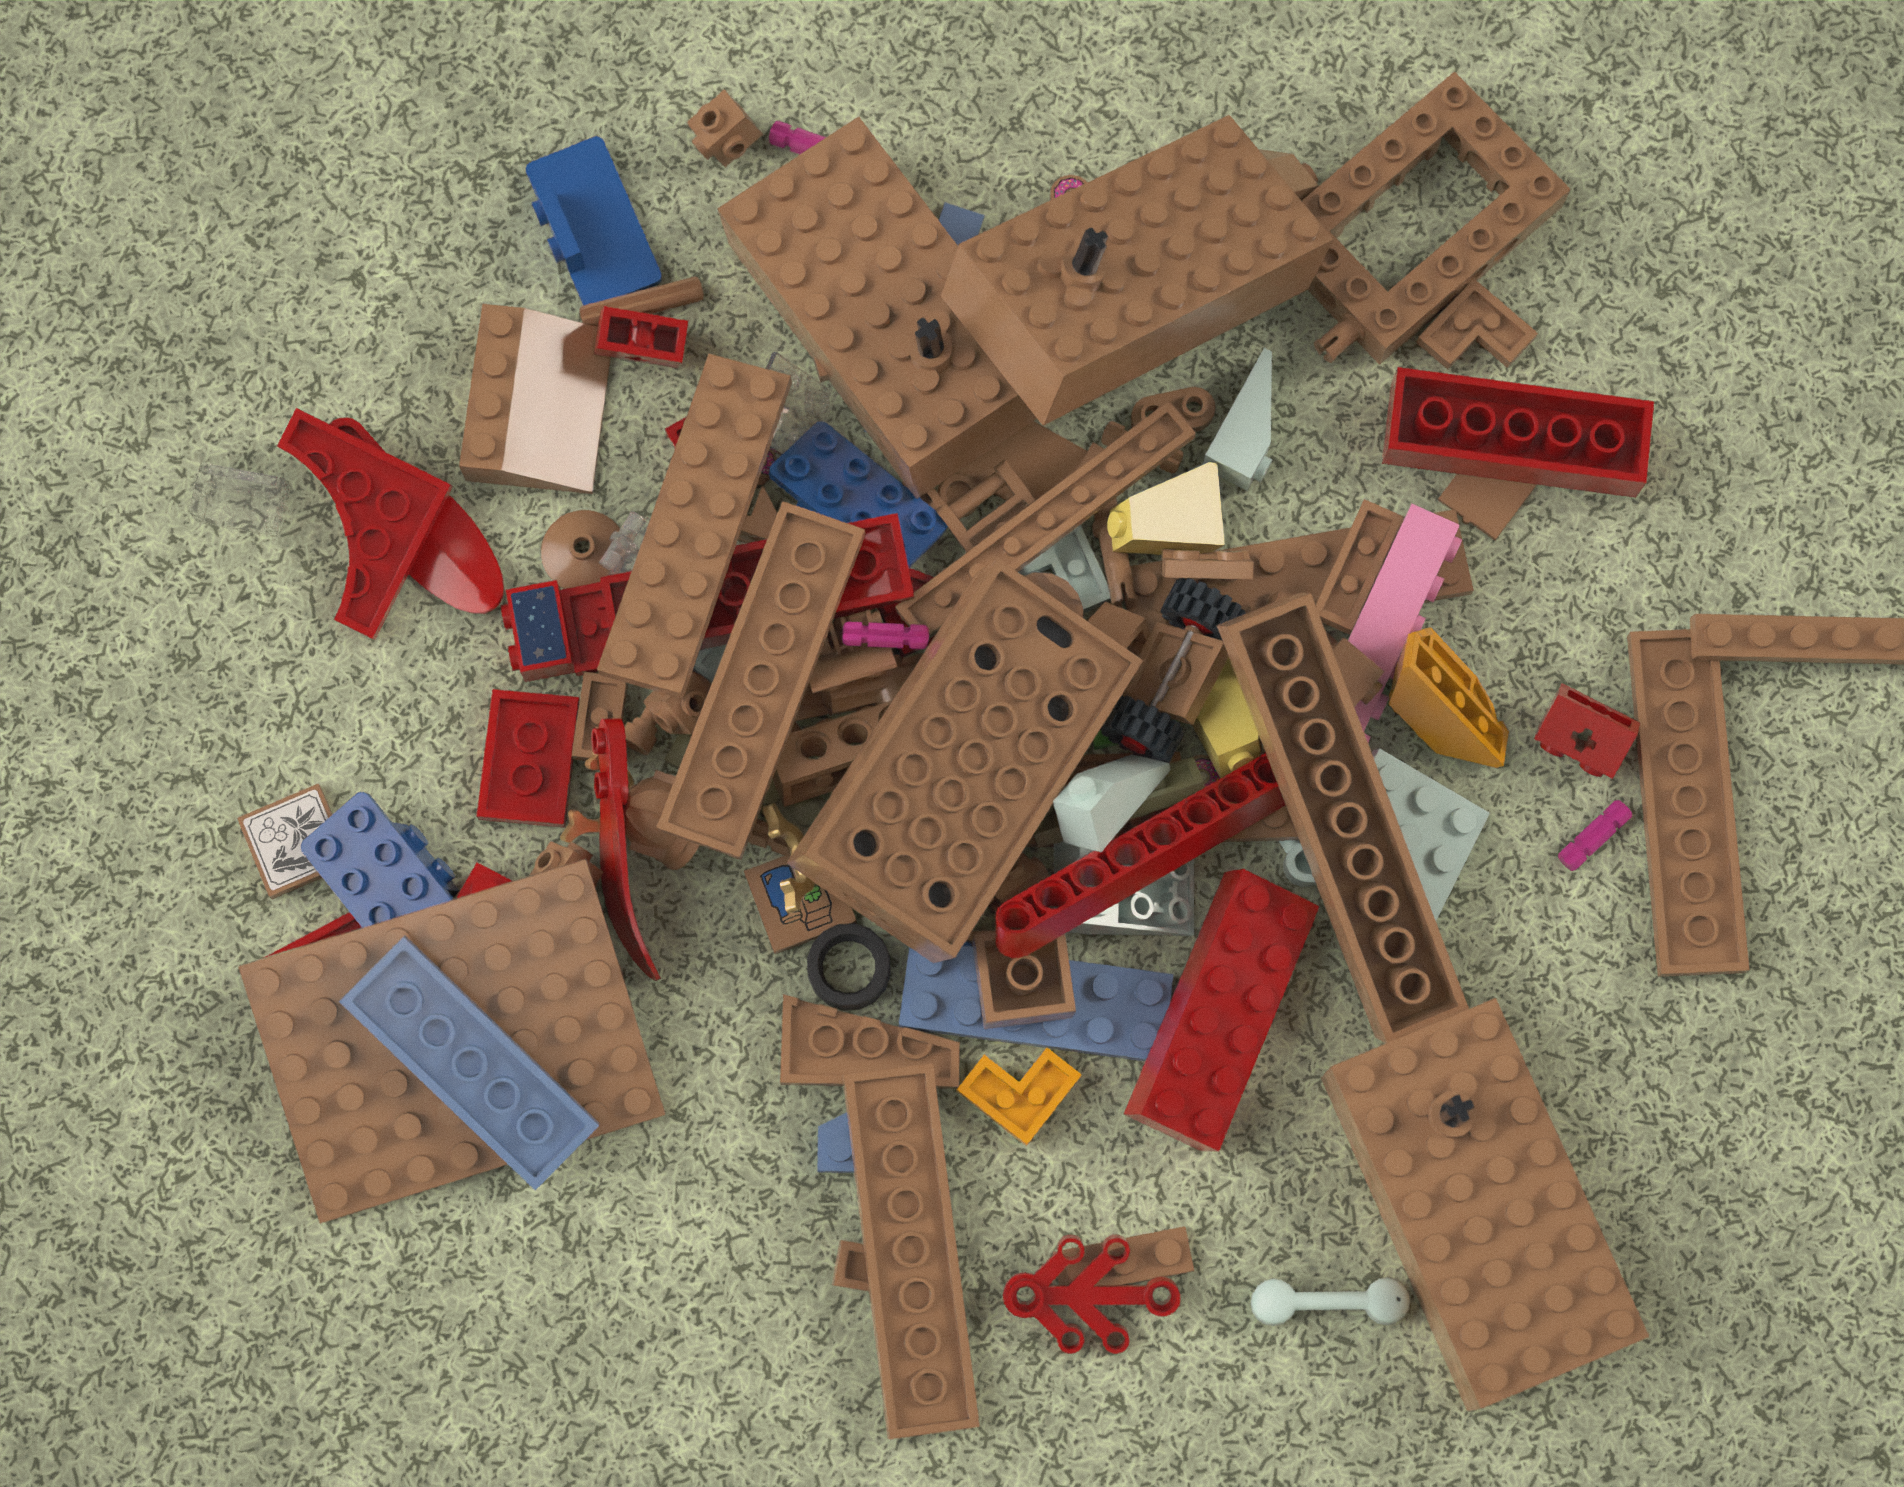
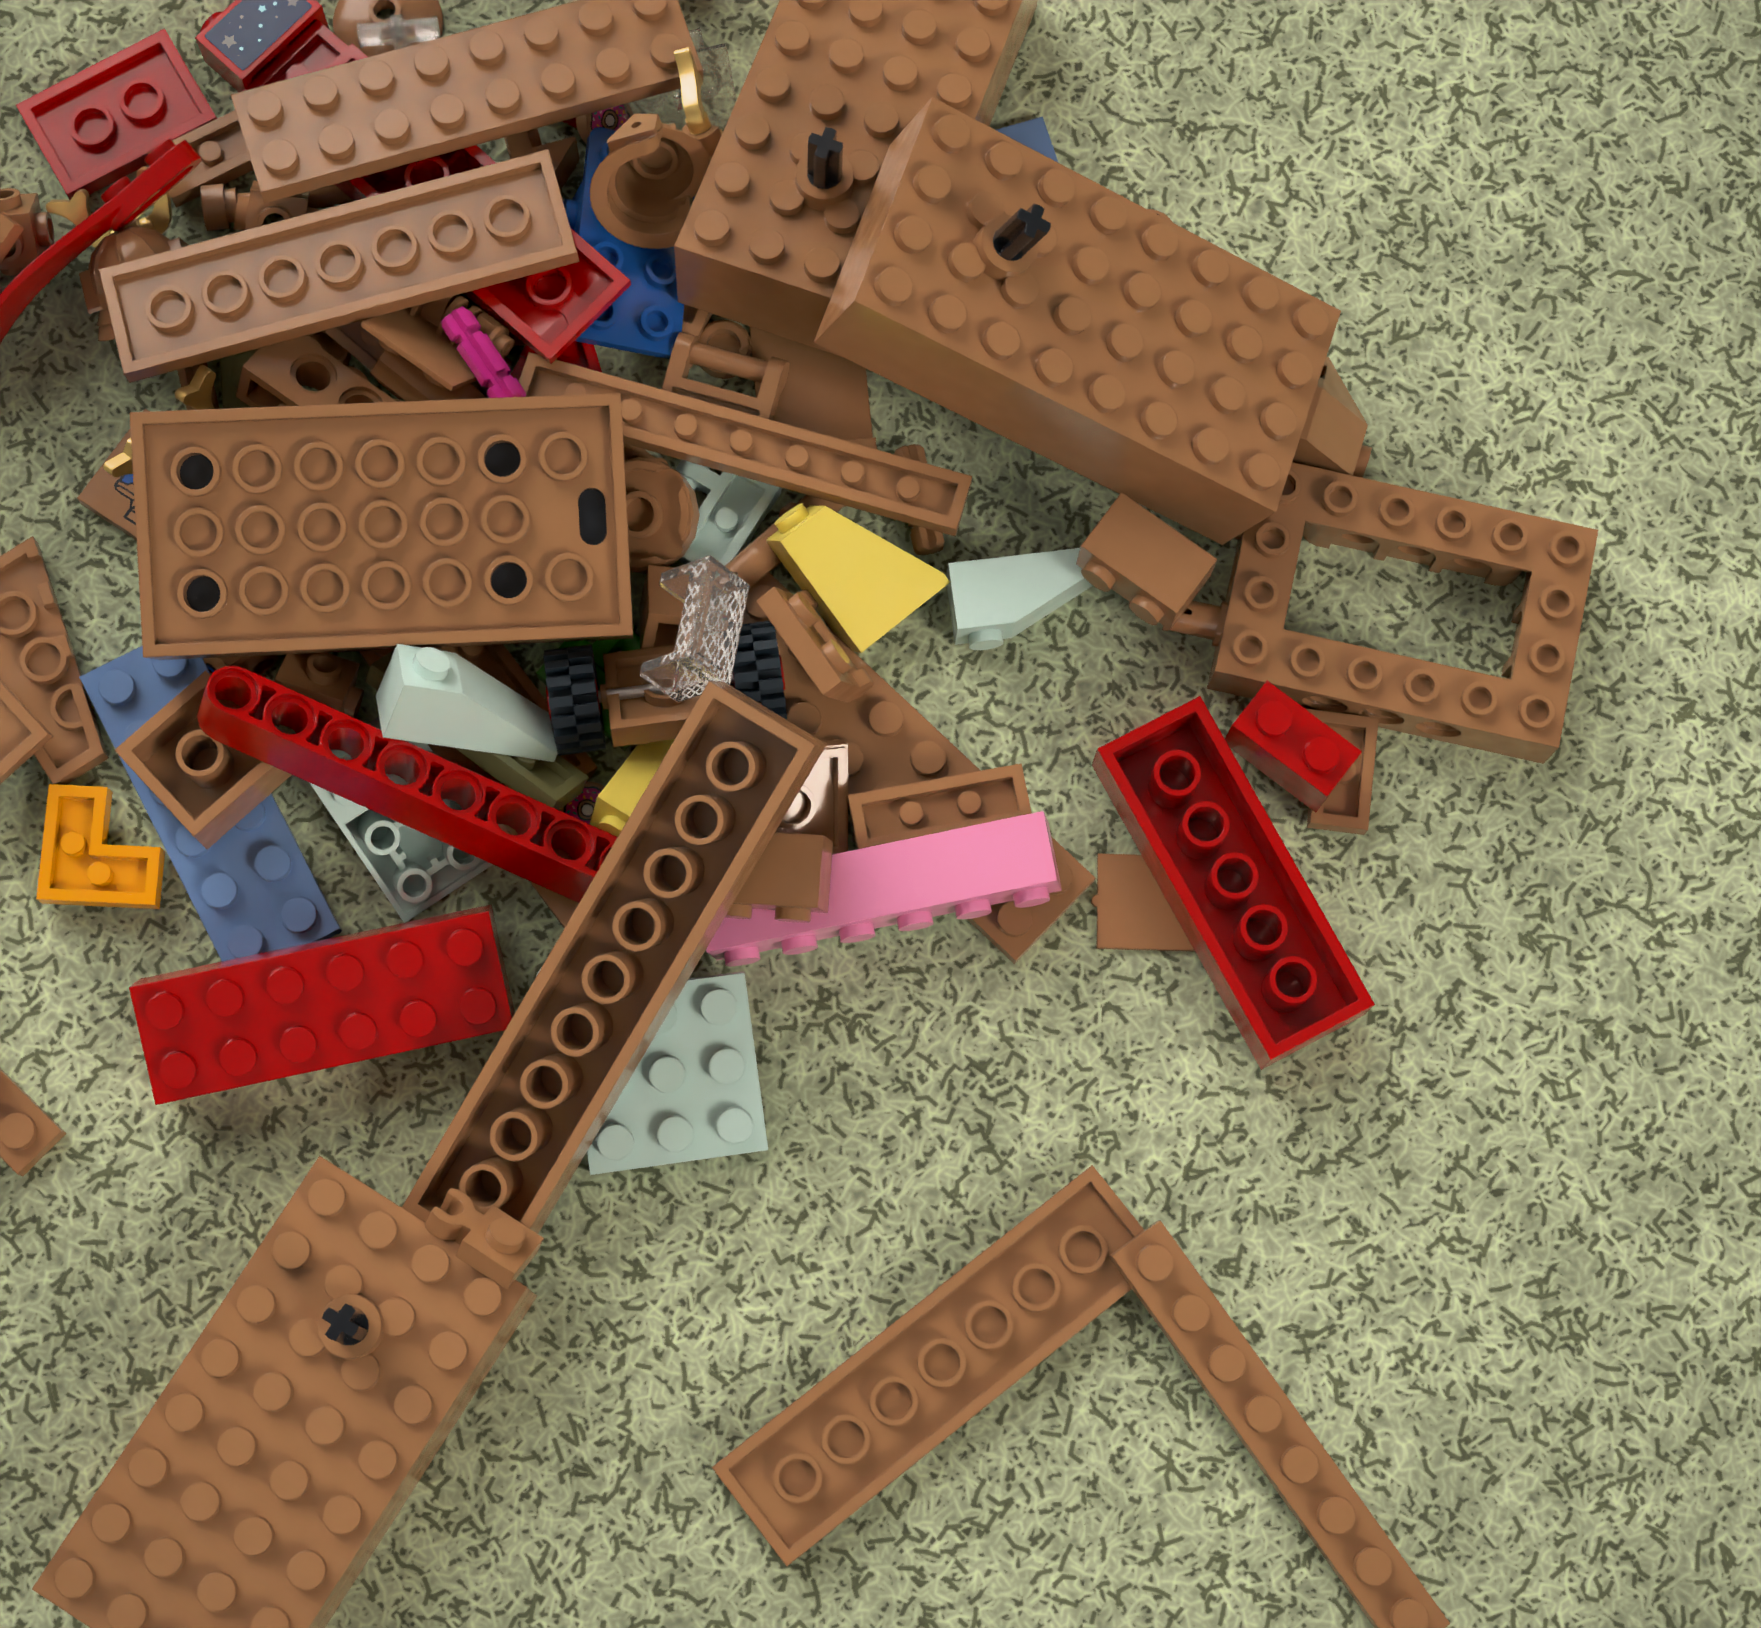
camera: 50 degrees right, 0 degrees up
(836, 447) = (655, 169): none -> medium nougat helmet
(846, 933) = (70, 568): black tyre -> none
(1163, 619) = (707, 629): none -> clear panel
(1179, 399) = (985, 502): medium nougat plate -> none
(1276, 1301) = (41, 1288): light aqua piece -> none
(1293, 340) = (1144, 562): none -> medium nougat brick
(1446, 702) = (857, 1007): light orange wedge -> none
(1451, 999) = (489, 1242): none -> medium nougat plate
(1464, 337) = (1291, 746): none -> red brick
(1570, 715) = (936, 1192): red brick -> none
(1595, 835) = (827, 1286): dark pink axle -> none

